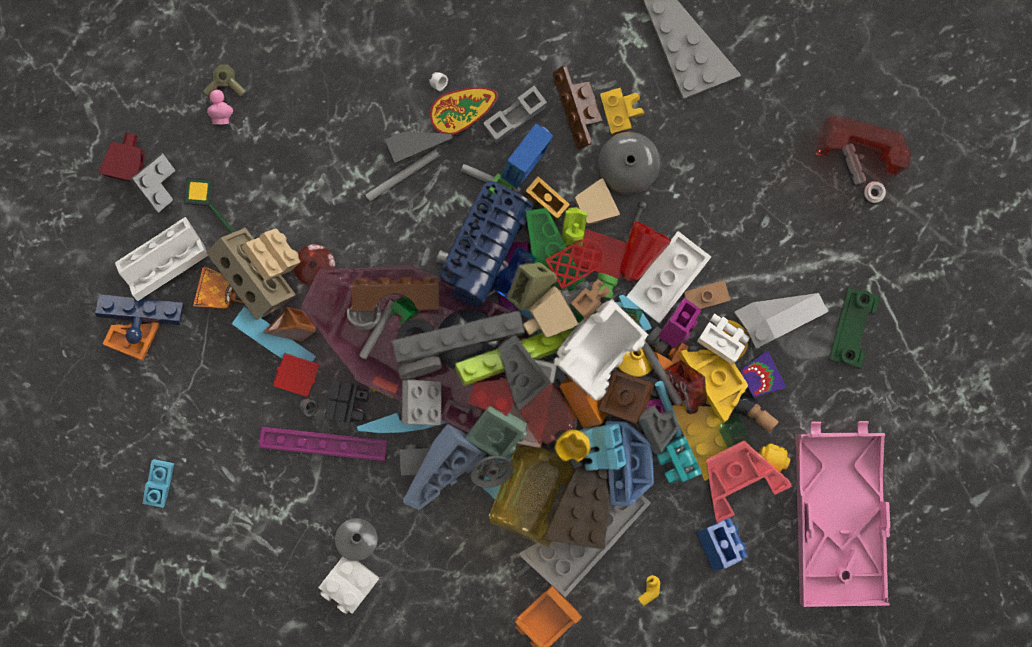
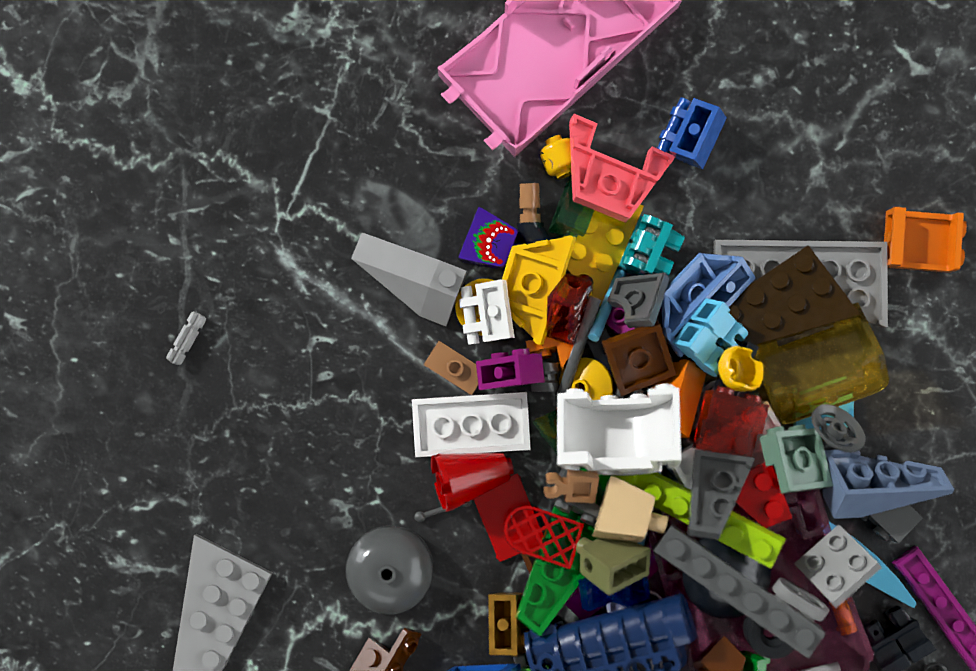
camera: 130 degrees left, 0 degrees up
(574, 226) = (508, 570): lime hips -> none
(597, 203) = (465, 567): tan torso -> none
(608, 281) = (536, 480): bright green wheel -> none
(620, 110) = (340, 629): yellow plate -> none
(627, 303) = (539, 443): medium azure slope -> none
(652, 590) = (799, 161): yellow arm -> none
(851, 327) = (355, 195): dark green brick -> none
(880, 189) = (189, 287): white plate -> none
(893, 144) = (130, 316): clear red windscreen -> none

